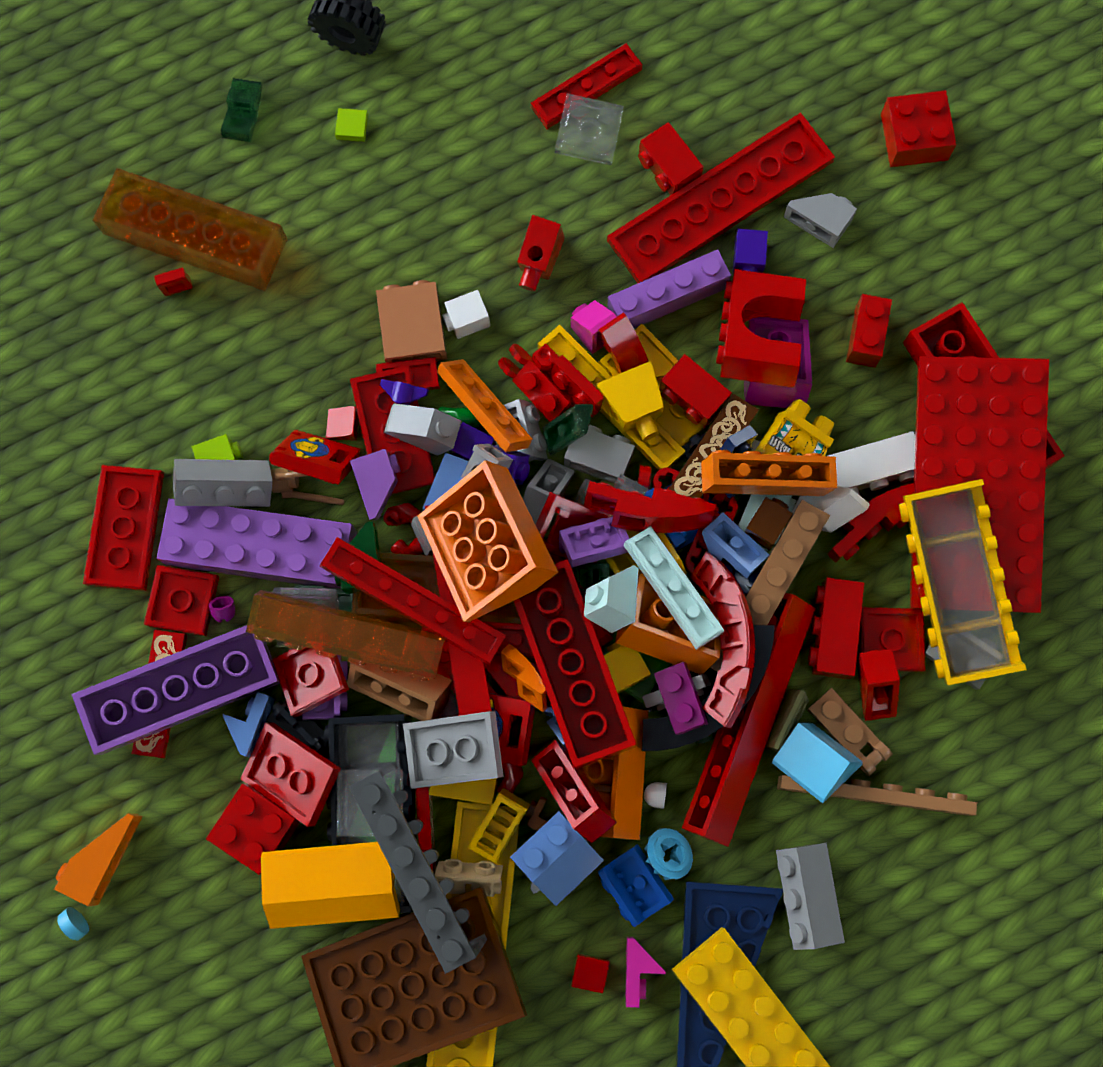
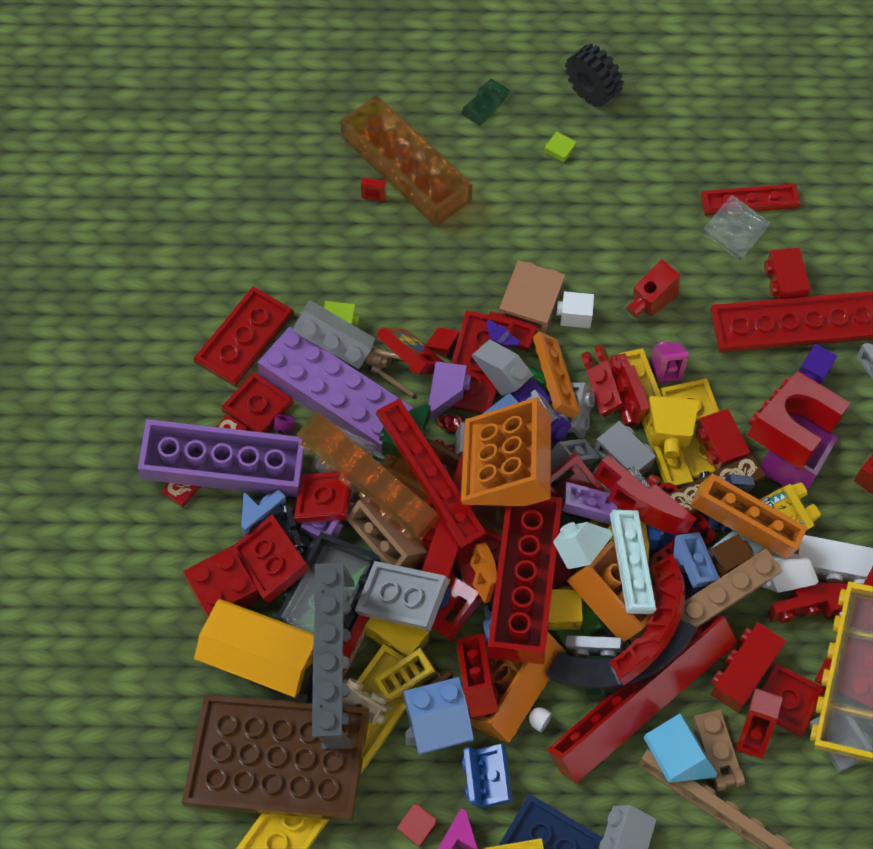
camera: 20 degrees right, 15 degrees down
(73, 924) = (51, 586): medium azure tile -> none
(93, 867) = (93, 551): orange slope -> none
(512, 778) = (437, 646): red arm -> none
(567, 427) = (610, 418): clear green slope -> none
(623, 343) = (684, 377): red slope -> none
(671, 289) = (738, 364): medium lavender brick -> none
(680, 698) = (596, 647): magenta plate -> none
(680, 855) = (526, 754): medium azure gear -> none
(787, 718) = (685, 706): olive slope -> none

